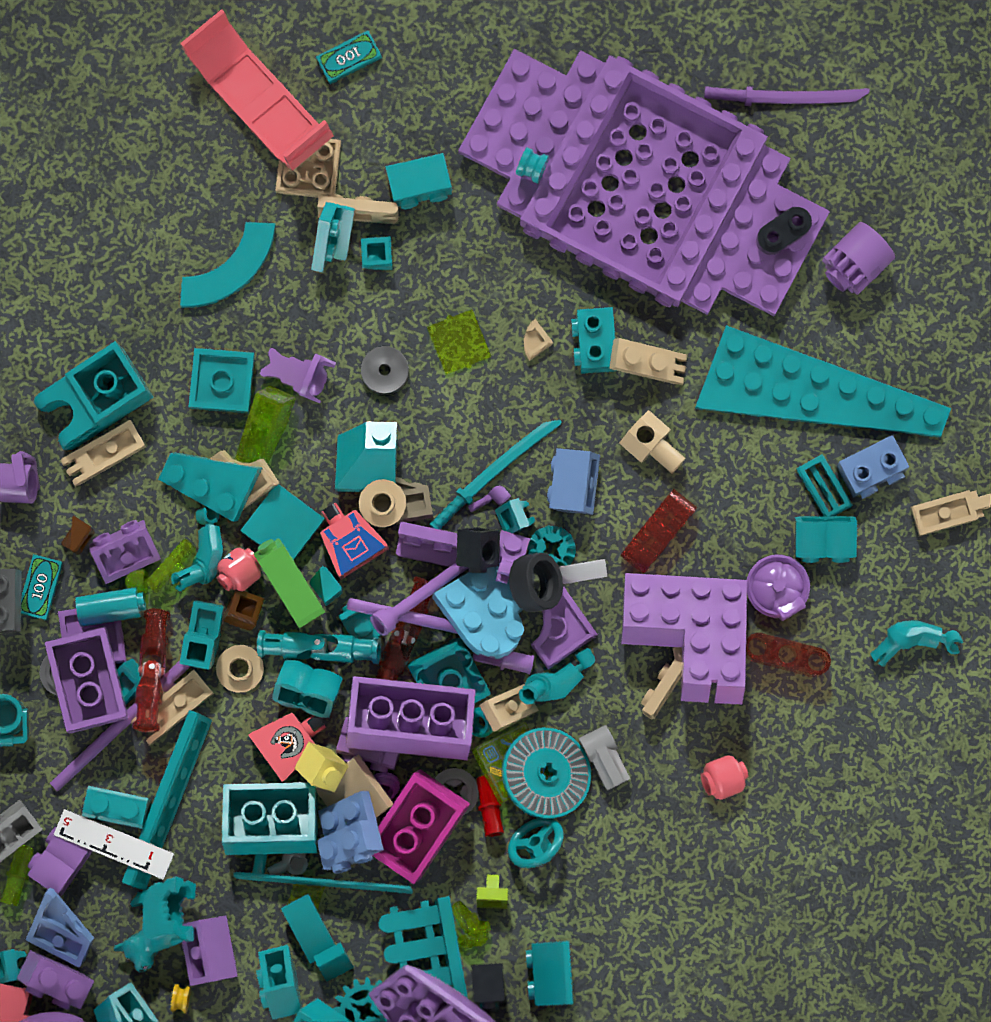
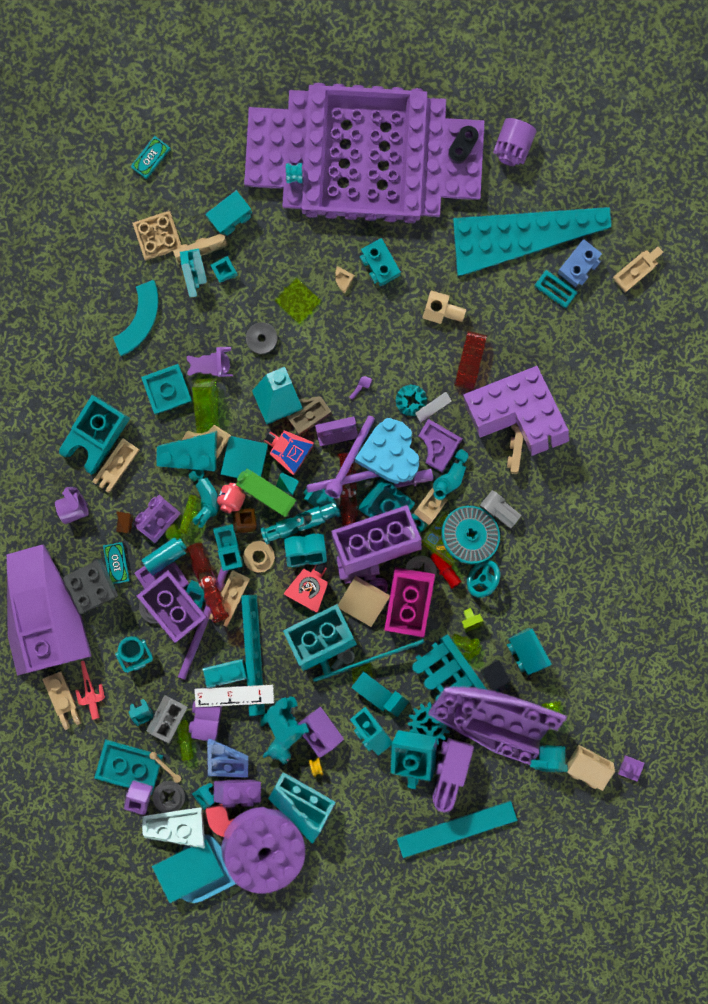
camera: 30 degrees left, 5 degrees up
(254, 92) = (104, 205): coral windscreen -> none
(321, 767) = (336, 593): light yellow brick -> none
(349, 833) = (371, 624): medium blue plate -> none
(397, 507) = (288, 419): tan piece -> none
(465, 495) = (345, 391): teal sword -> none
(478, 548) = (369, 420): black brick -> none
(511, 548) = (388, 413): medium lavender plate -> none
(512, 516) = (380, 391): teal tile -> none
(550, 582) = (405, 428): black tyre -> none
(573, 481) = (406, 353): medium blue brick -> none
(647, 361) = (416, 261): tan hinge -> none
(724, 777) = (576, 488): coral head -> none
(778, 586) = (556, 360): medium lavender piece -> none
(784, 97) = (403, 72): medium lavender sword -> none
(801, 655) = (588, 394): clear red beam -> none
(825, 537) = (571, 318): teal brick -> none
(912, 633) = (648, 352): teal arm -> none

